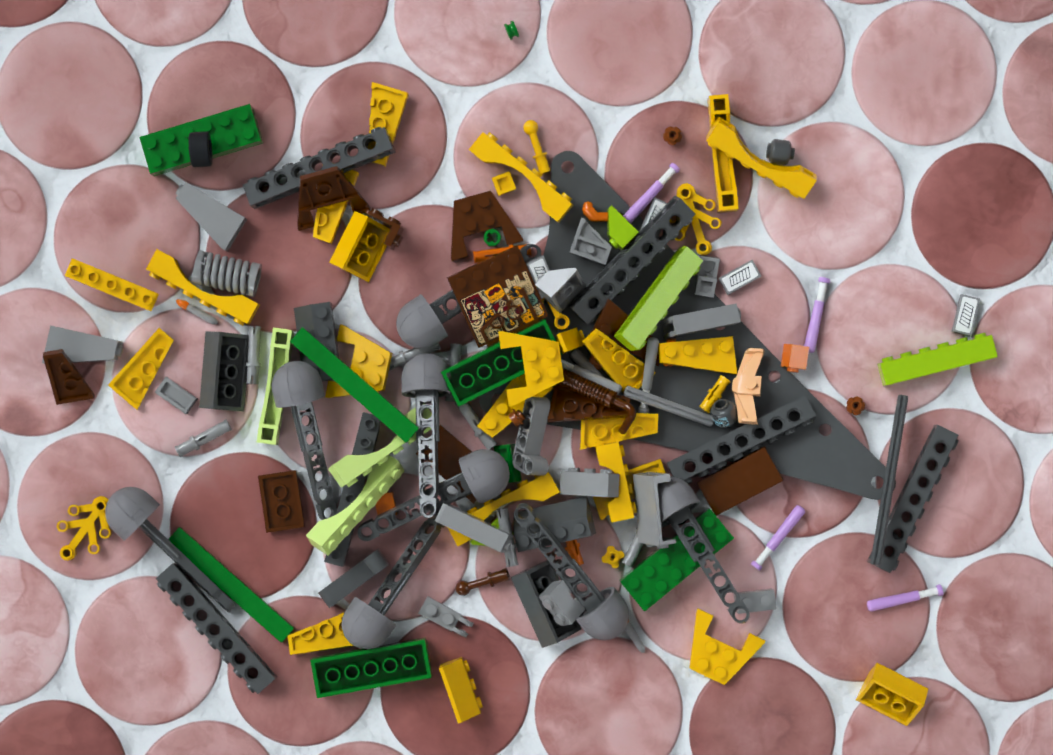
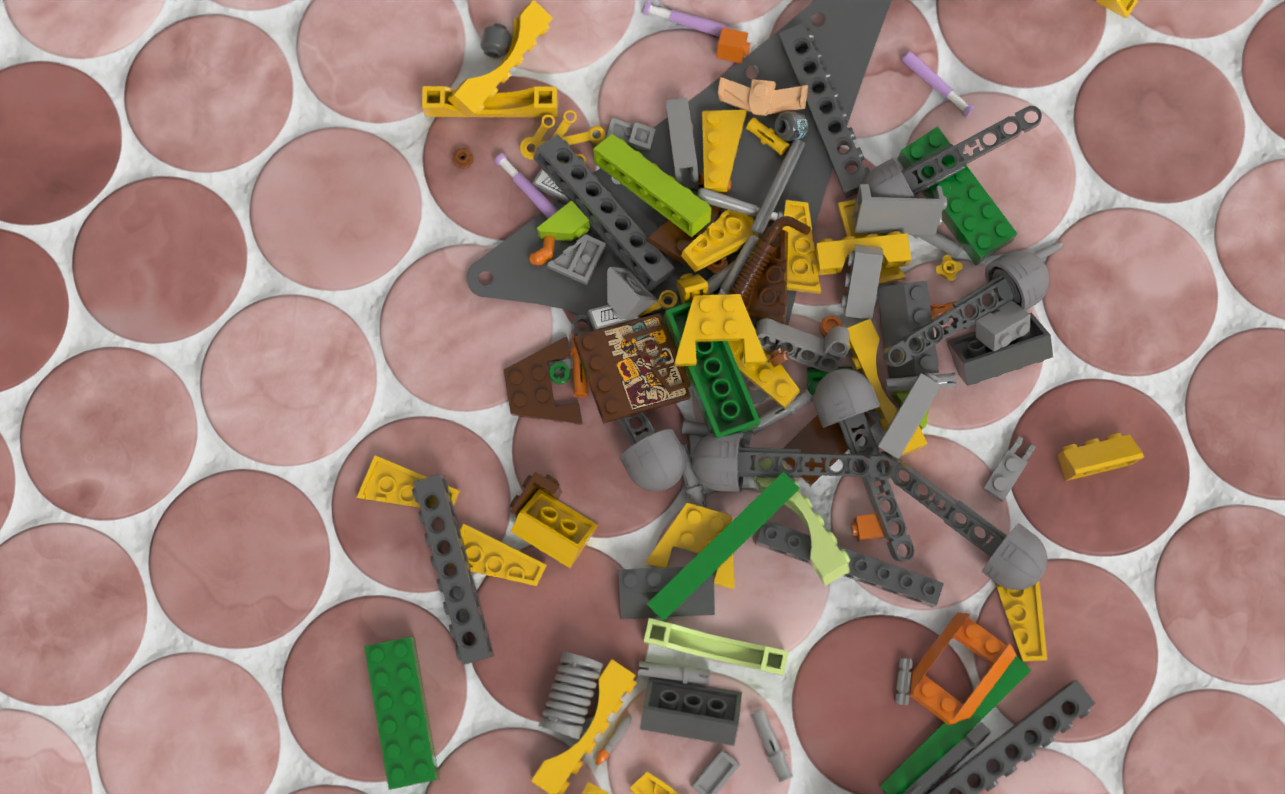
camera: 80 degrees left, 10 degrees down
(200, 149) = (413, 708): black tyre -> none
(213, 217) = (498, 706): light grey slope -> none
(260, 540) = (903, 681): none -> light grey axle
(281, 501) = (857, 654): reddish brown plate -> none
(296, 387) = (720, 617): piece -> none
(298, 600) = (979, 642): none -> orange wedge
(324, 189) = (481, 565): reddish brown wing -> none
(330, 532) = (902, 589): yellowish green arch -> none
(353, 578) = (956, 572): dark grey beam -> none
(371, 667) = (1071, 566): green brick -> none
(464, 587) = (975, 444): reddish brown pin -> none
(503, 183) = (497, 353): yellow plate -> none
(511, 30) = (316, 328): green bush -> none
(530, 128) = (435, 316): yellow pin -> none
(552, 202) = (524, 297): yellow arch -> none
(554, 460) = (828, 323): none -> orange plate
(716, 658) = (1071, 166): yellow wing -> none
(739, 277) = (634, 99): white tile -> none
(740, 481) = (871, 115): reddish brown tile -> none
(757, 600) = (1007, 103): light grey brick -> none

